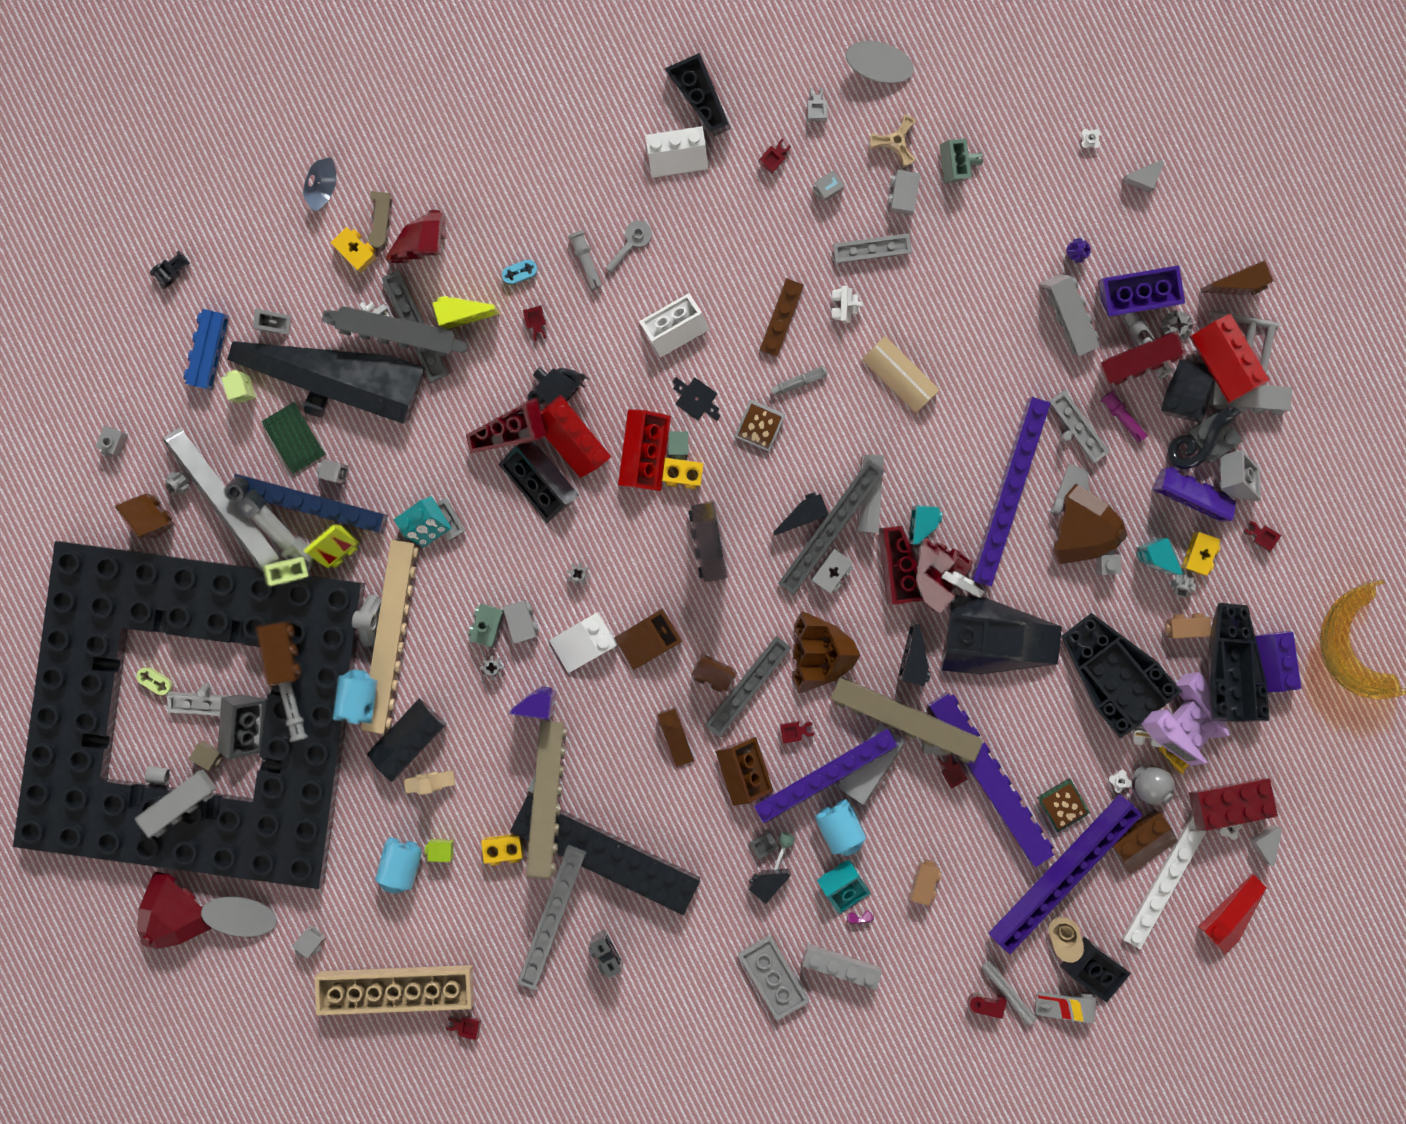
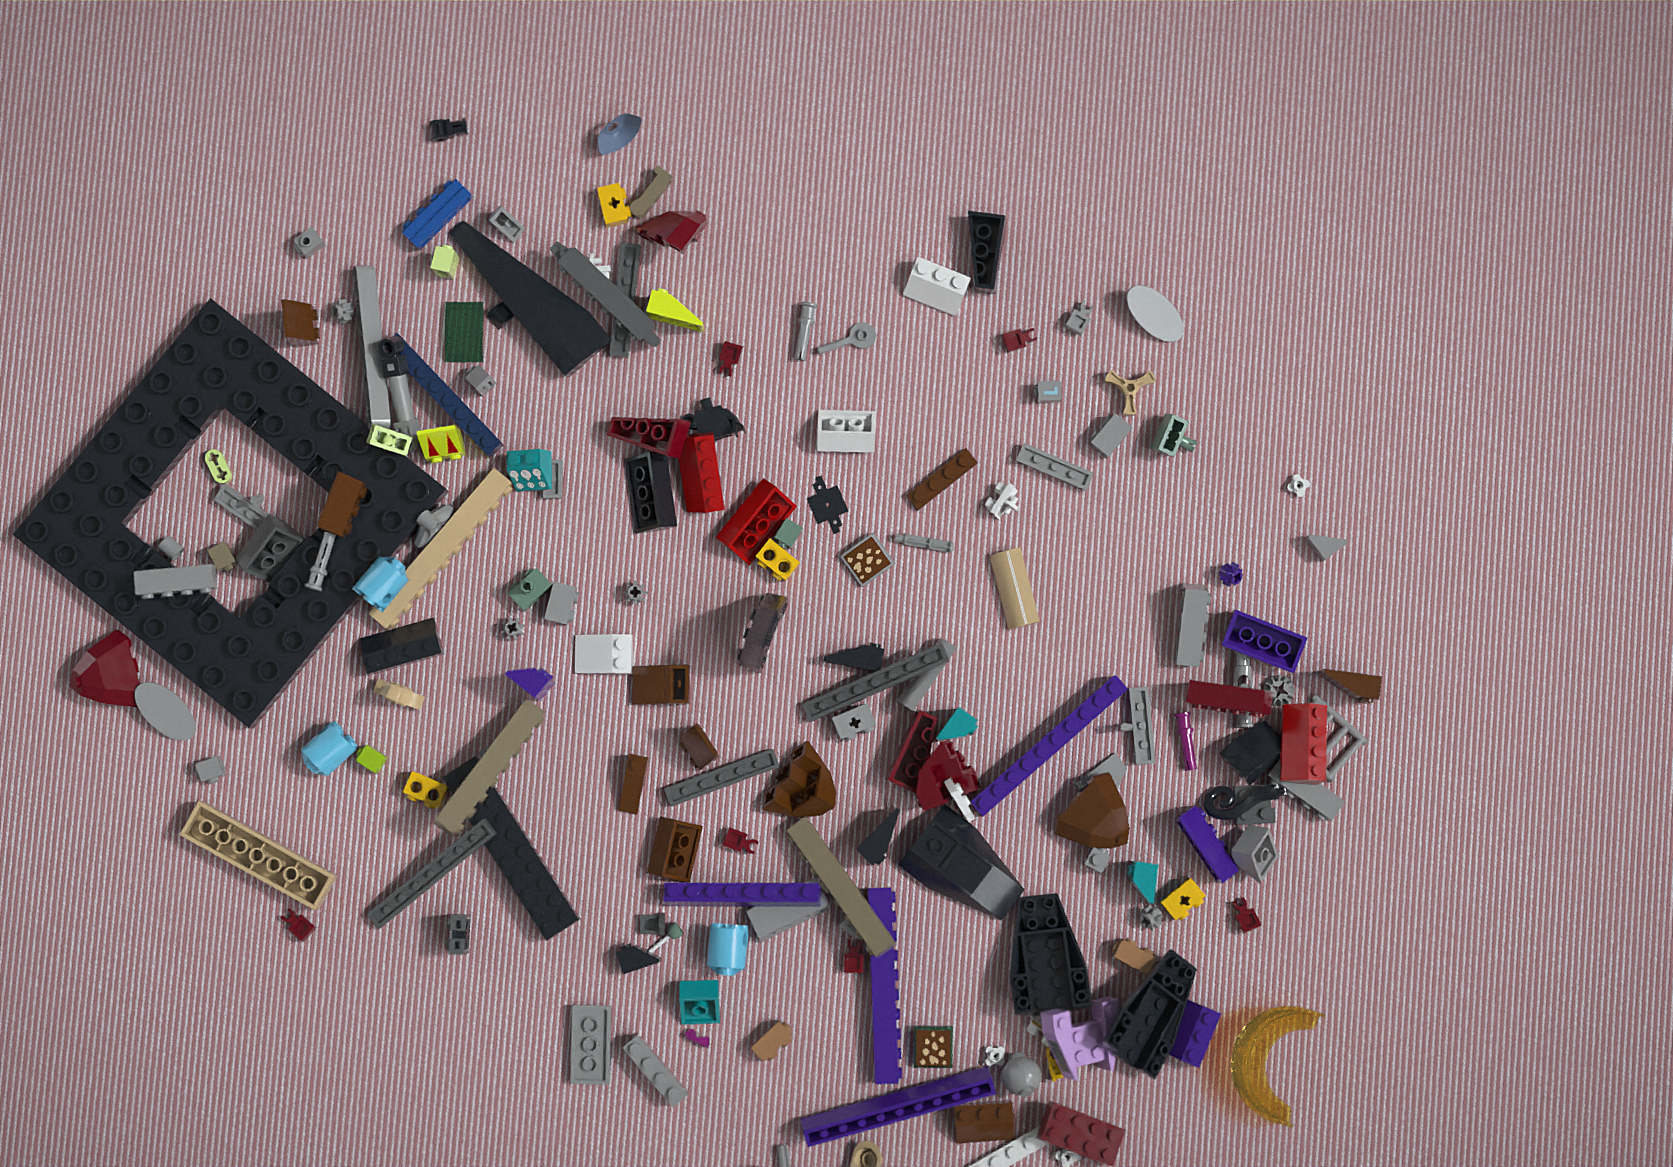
camera: 30 degrees right, 5 degrees down
(518, 267) = (740, 311): medium azure beam -> none

